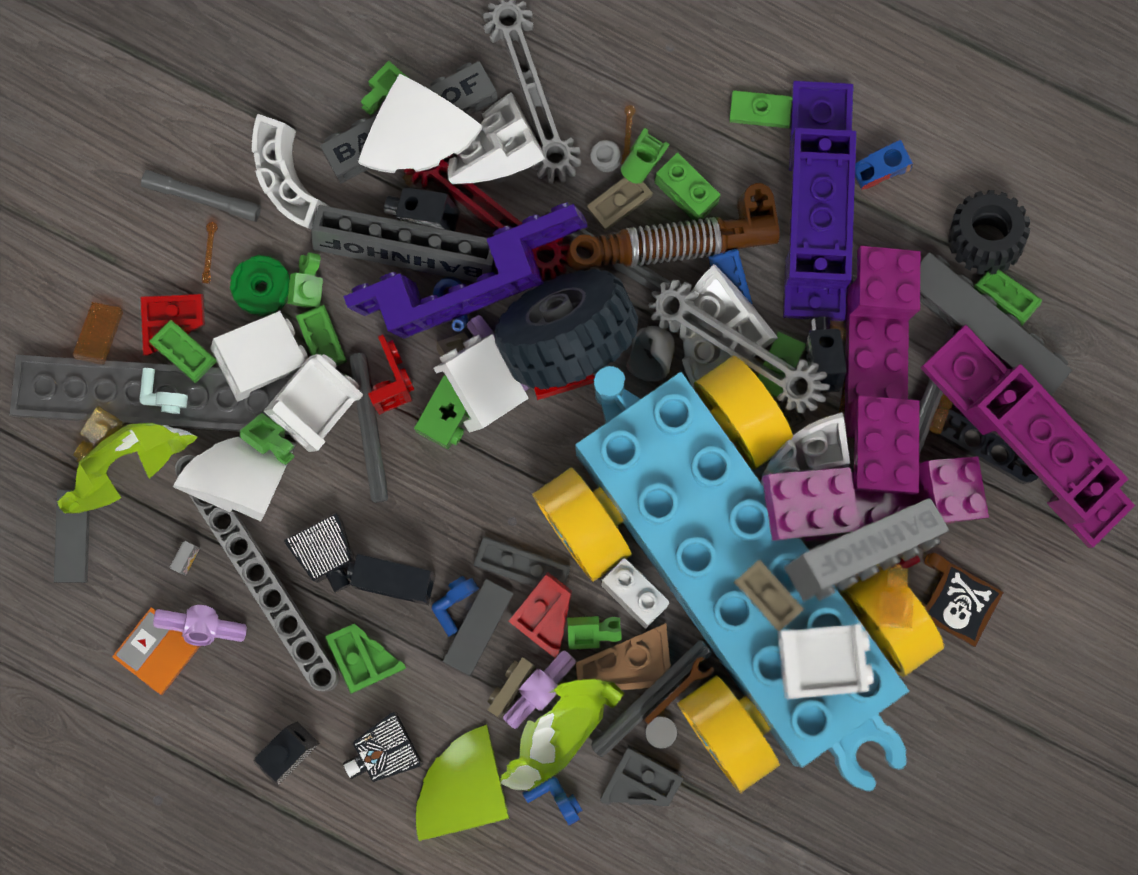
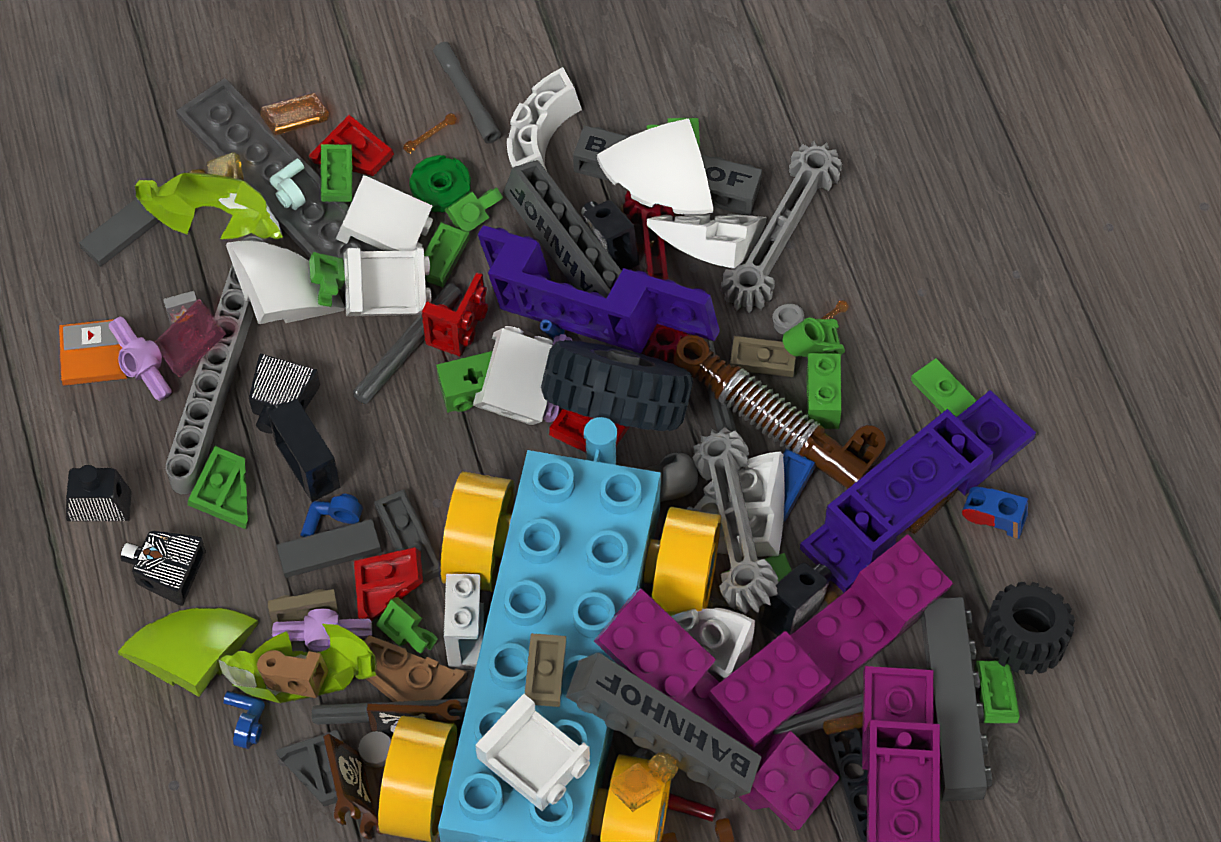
camera: 45 degrees right, 20 degrees down
(221, 578) = (189, 338): none -> clear pink plate
(558, 742) = (292, 673): none -> medium nougat leg
(683, 779) = (350, 785): none -> flag

